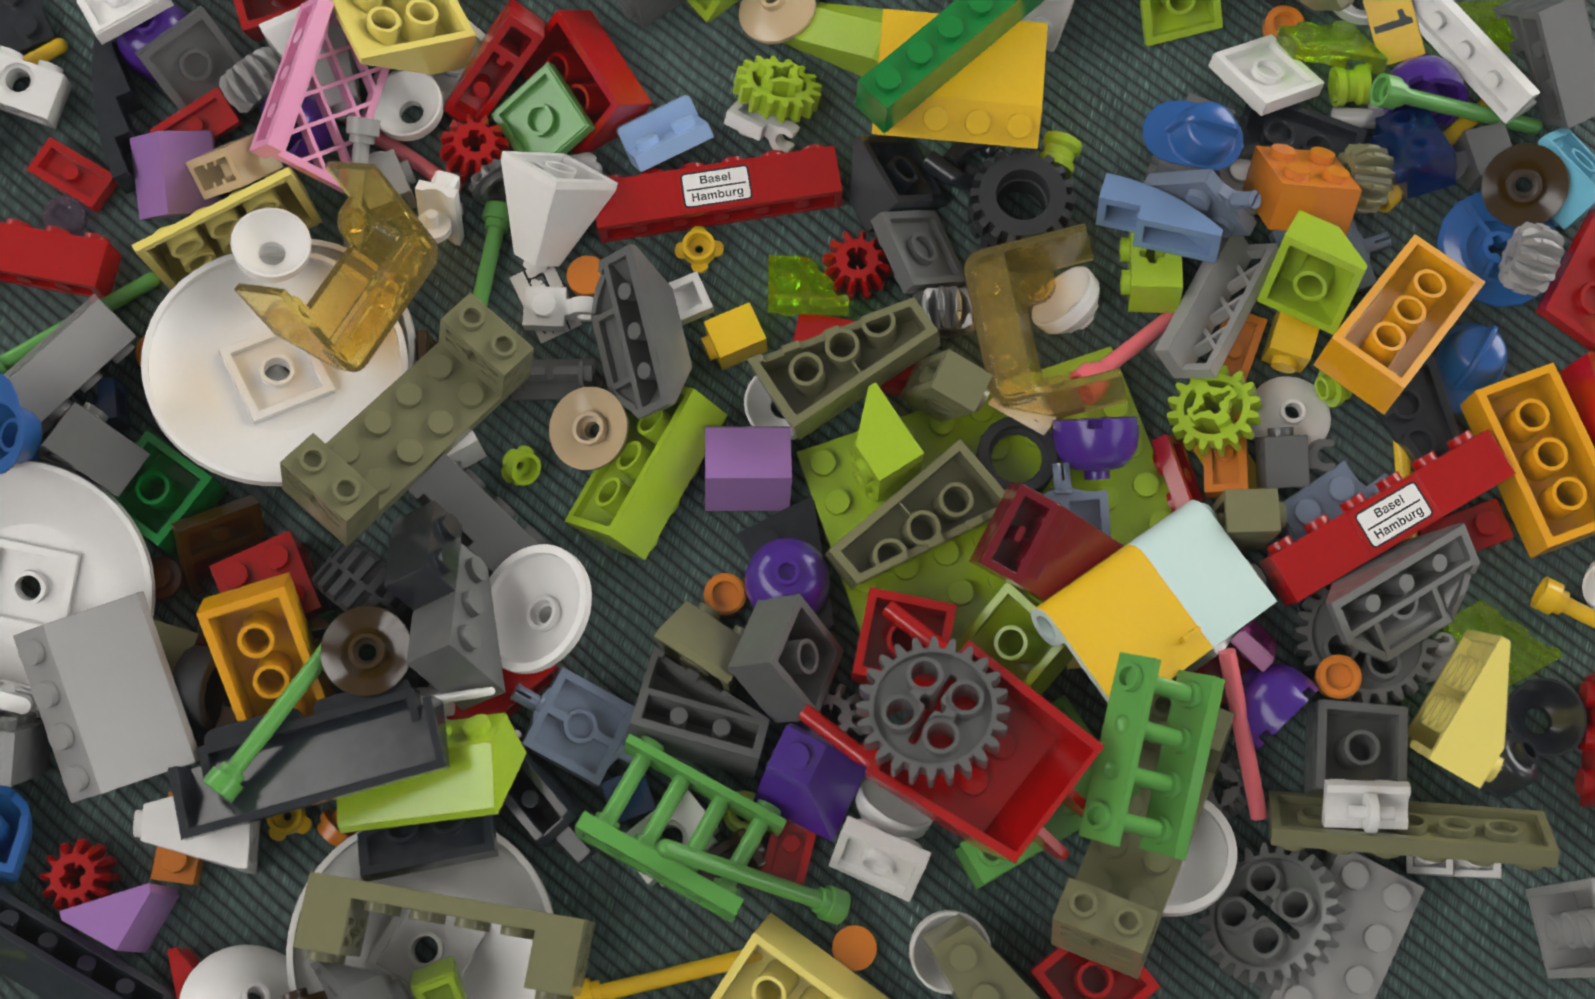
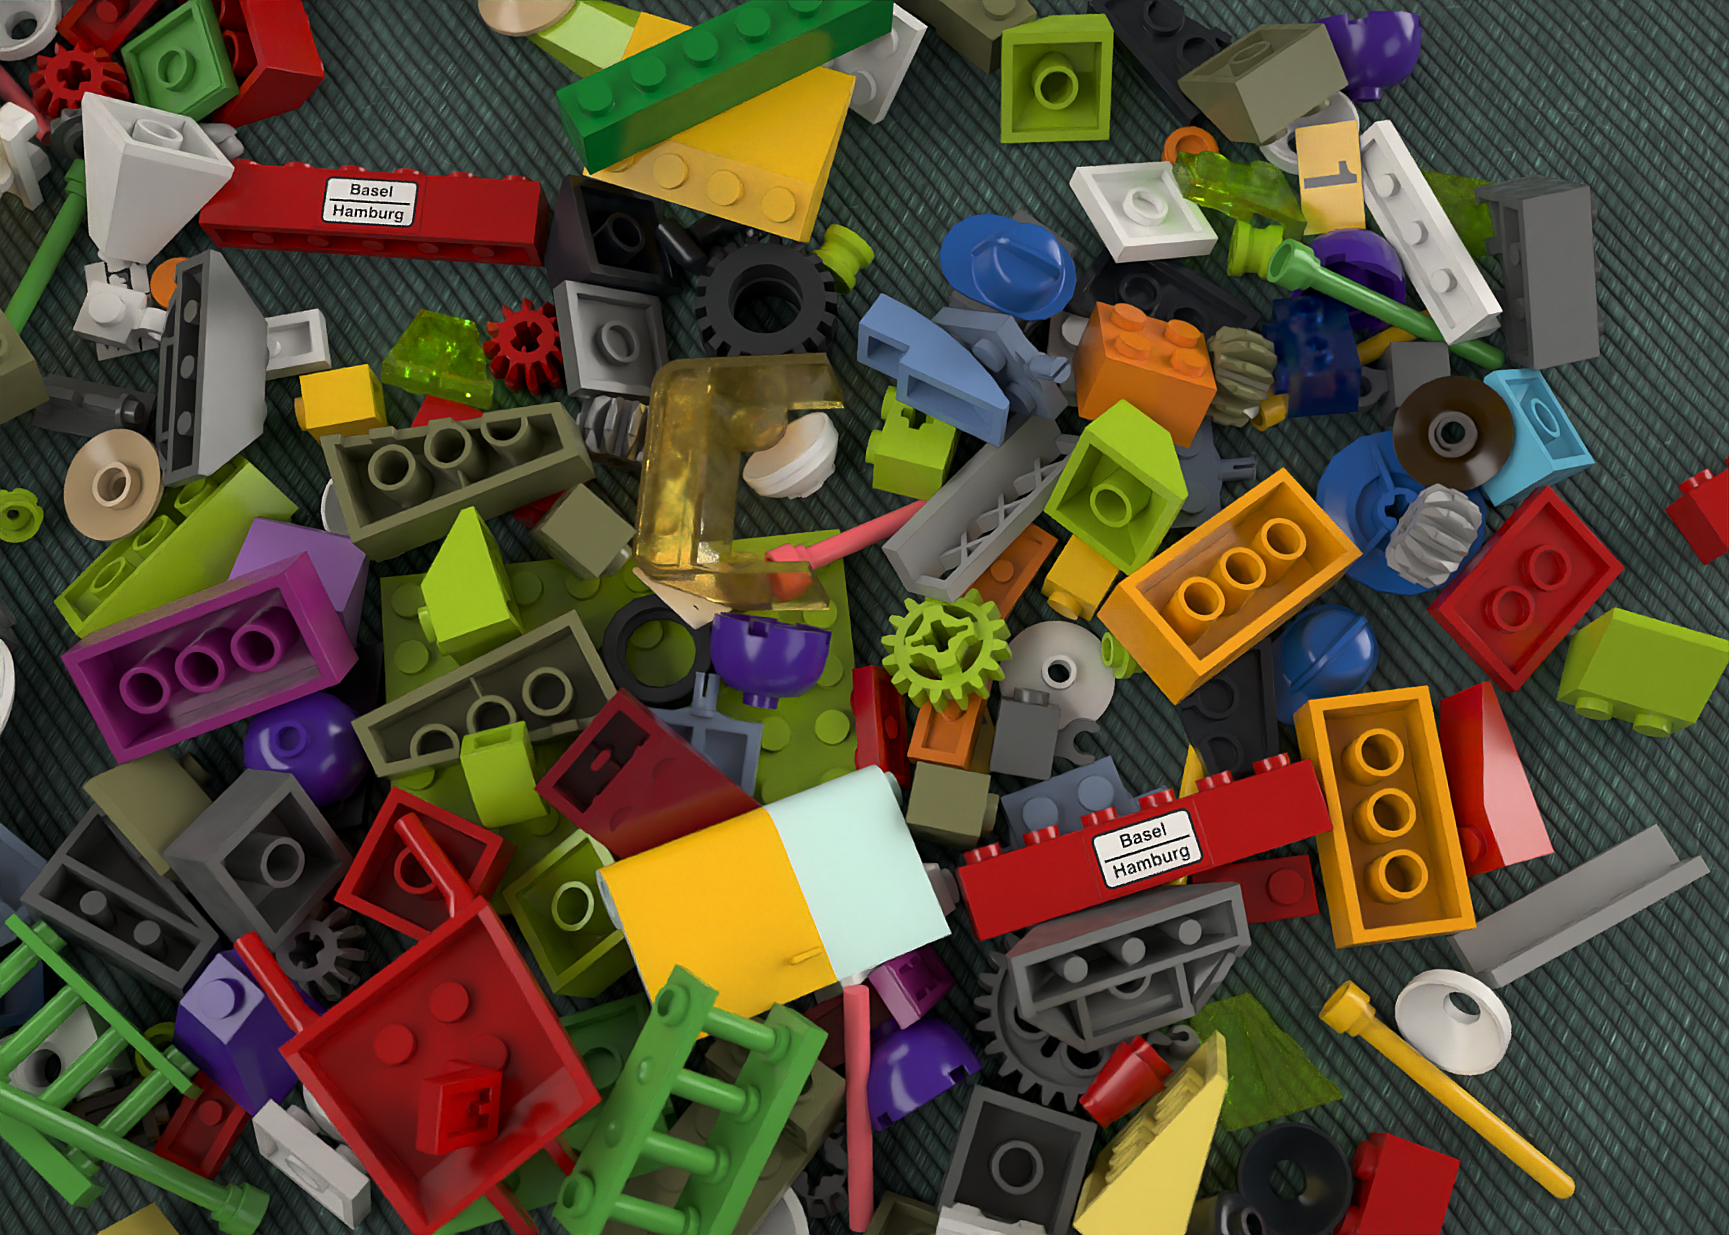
camera: 10 degrees right, 0 degrees up
(663, 133) = (328, 118): light blue bracket -> none
(699, 238) = (327, 269): yellow plate -> none
(715, 529) = (211, 658): none -> magenta brick
(725, 594) = (223, 750): orange tile -> none
(756, 127) = (461, 128): white plate -> none
(777, 89) = (490, 93): lime gear -> none
(944, 562) = (503, 774): none -> lime brick
(969, 729) = (424, 1030): dark grey gear -> none
(1006, 776) = (458, 1107): none -> red bracket
(1338, 677) = (1013, 1058): orange tile -> none
(1359, 117) = (1254, 294): light grey arm -> none
(1419, 673) = (1126, 1081): none -> red cone

